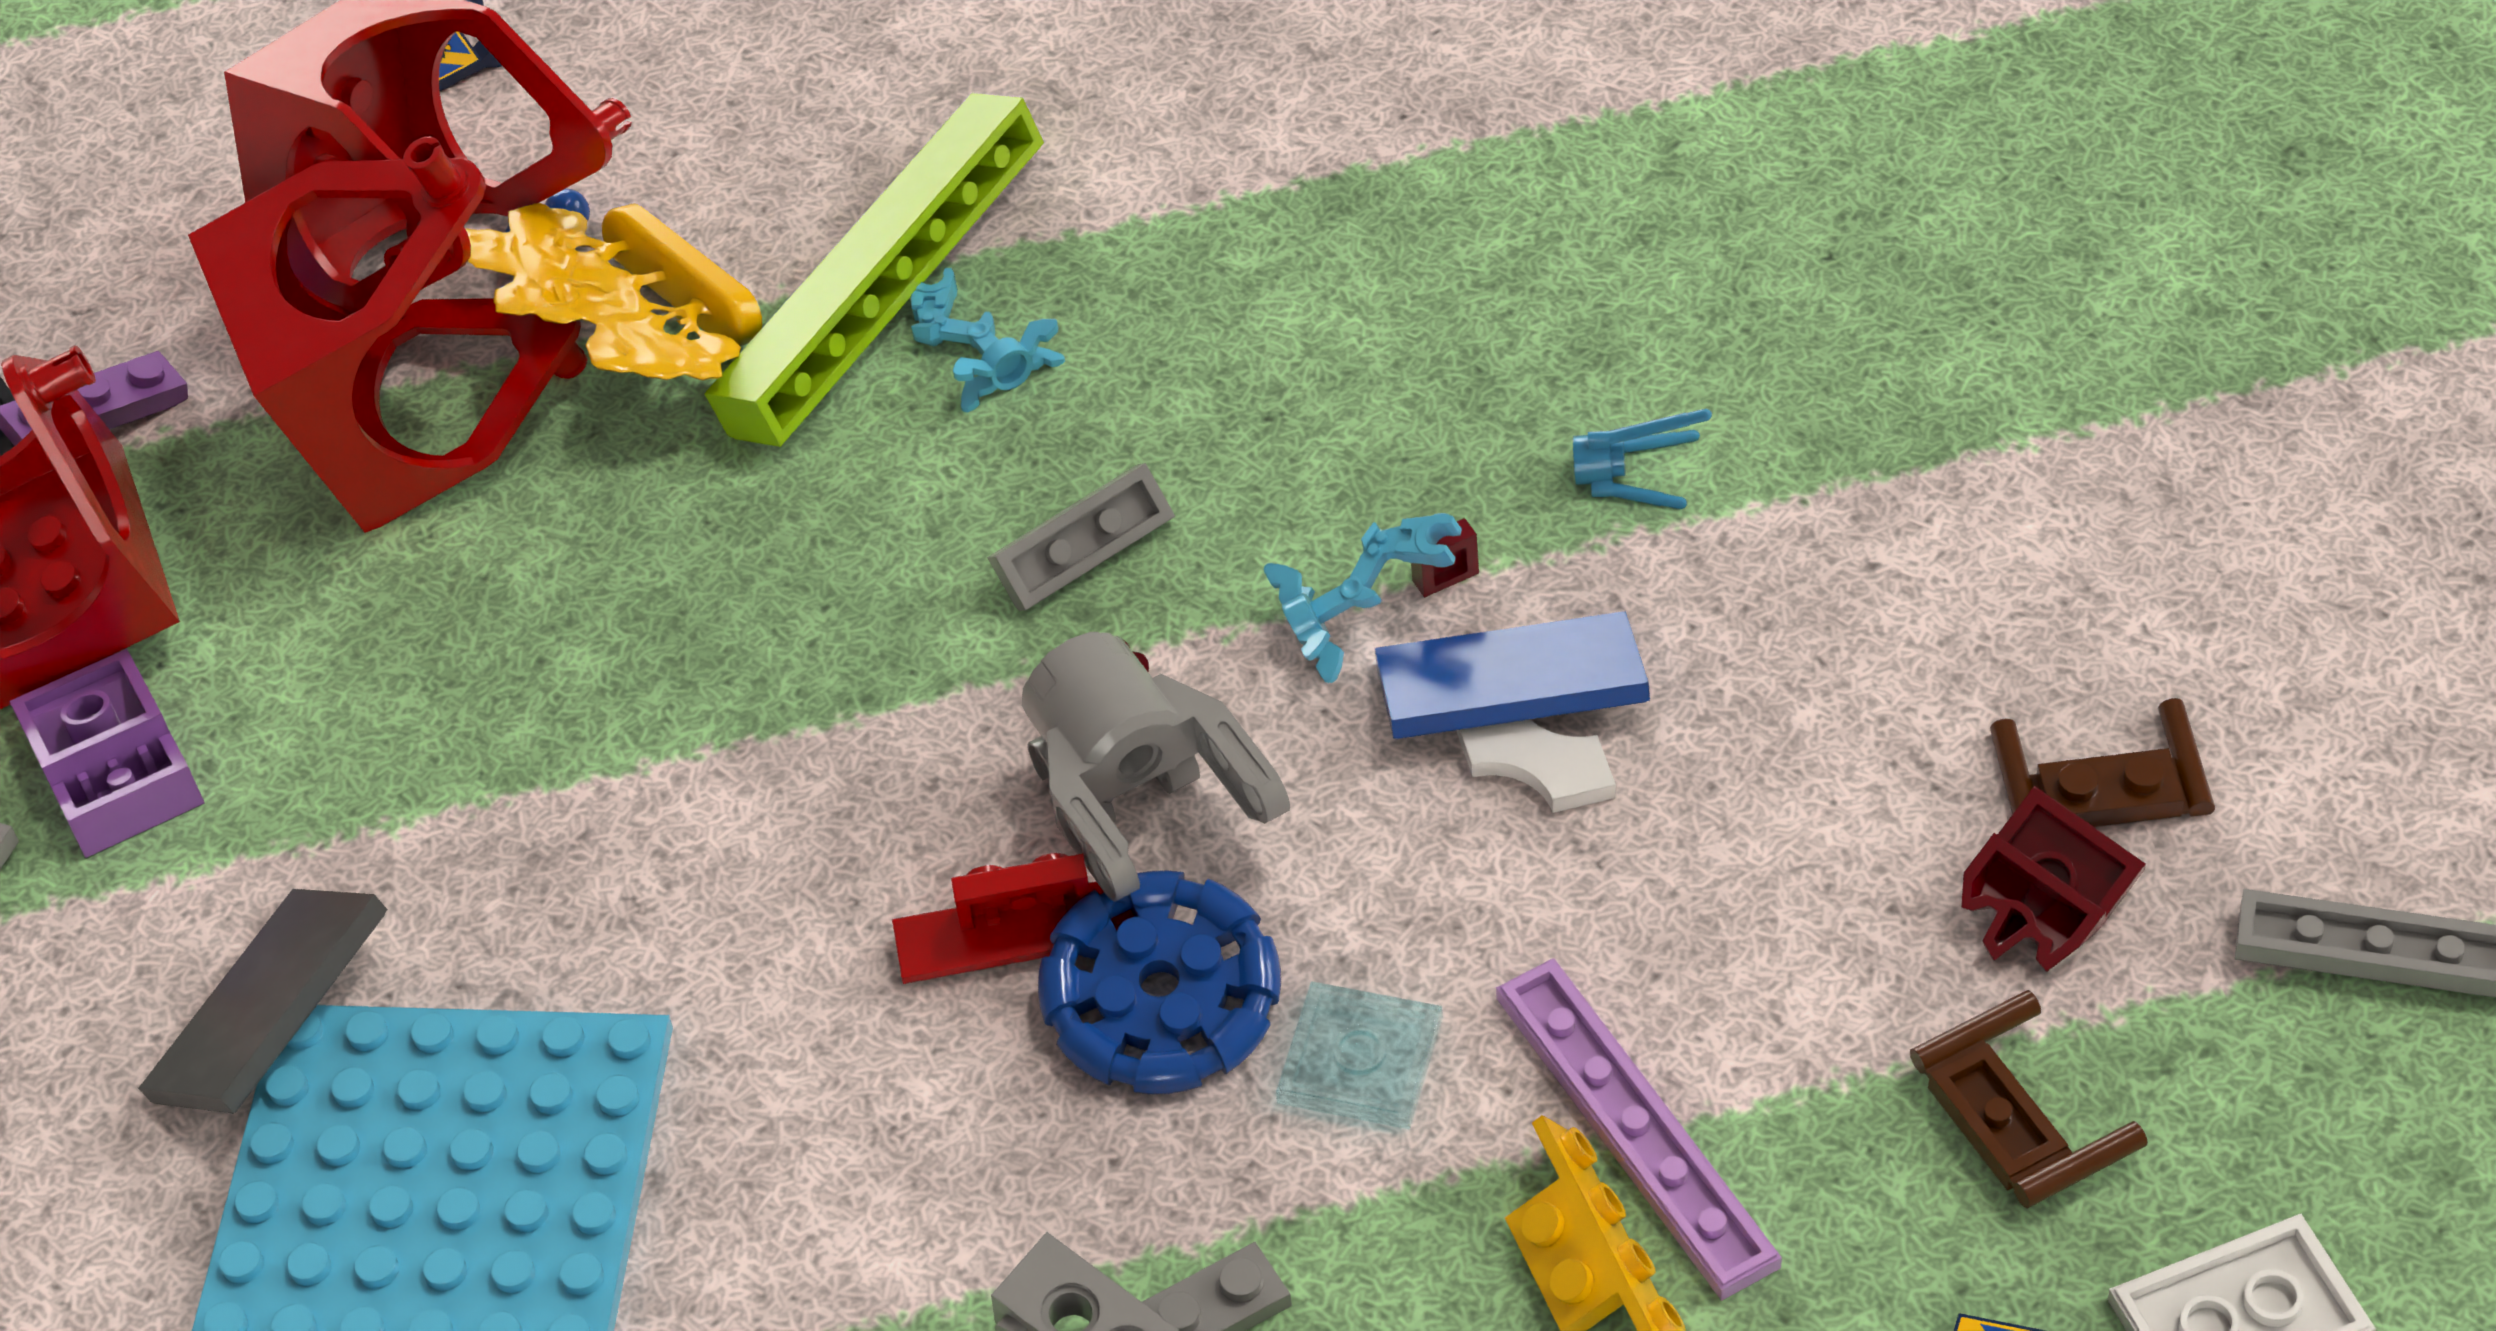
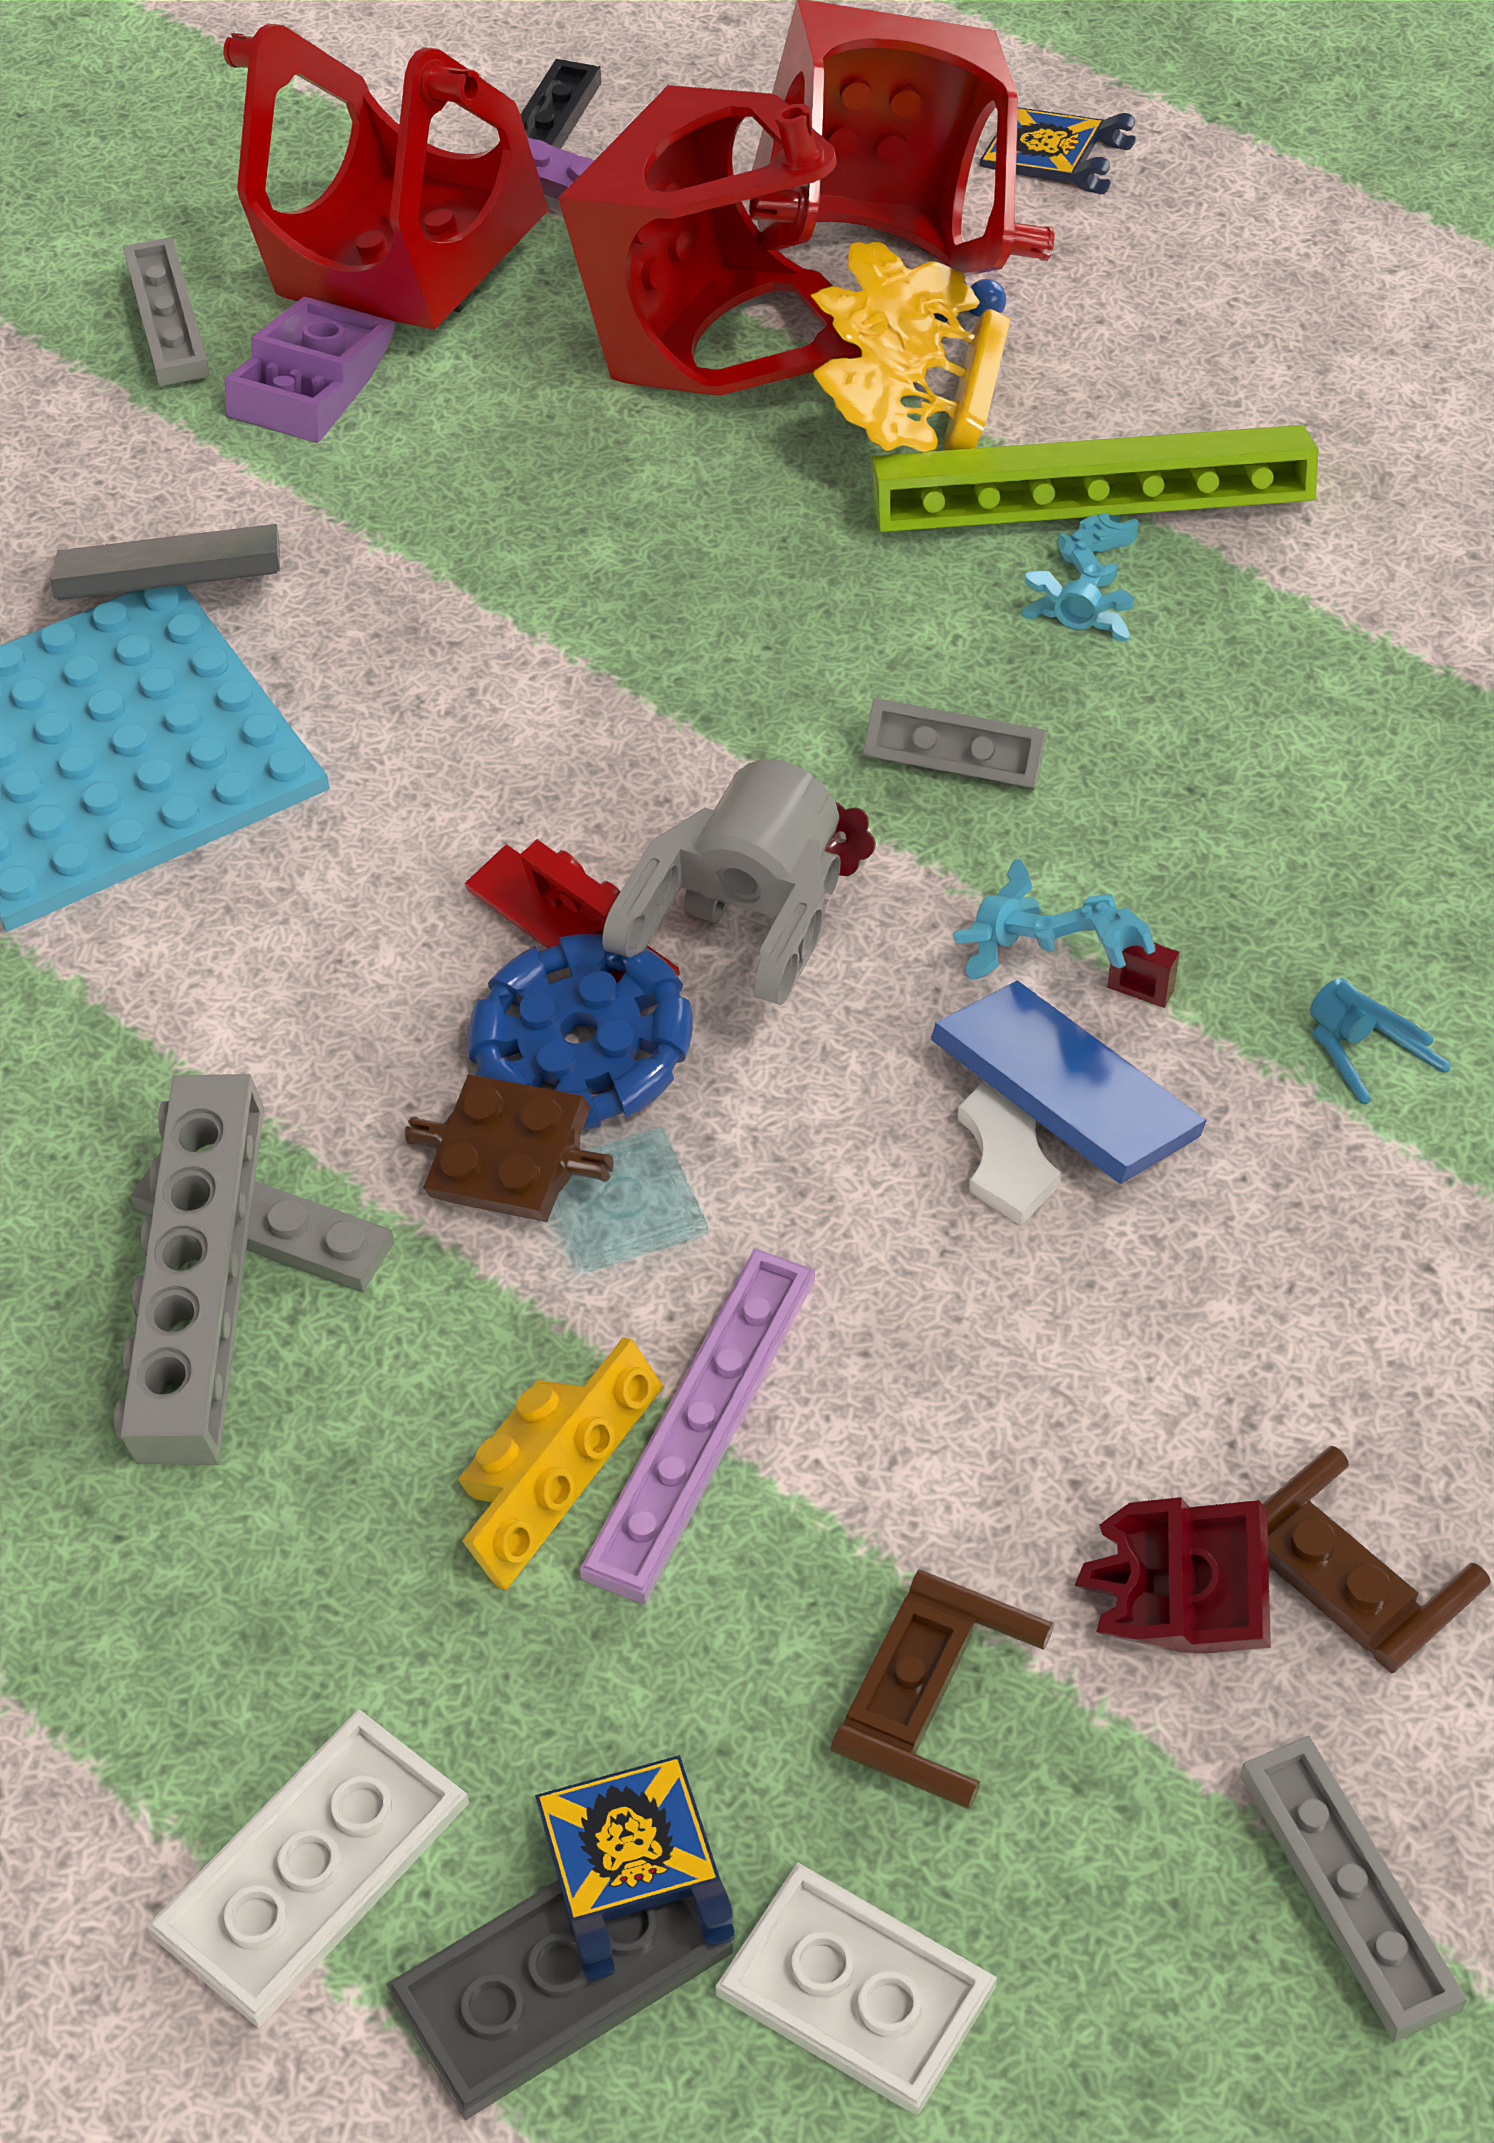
camera: 50 degrees right, 0 degrees up
(1245, 1103) = (508, 1148): none -> reddish brown plate

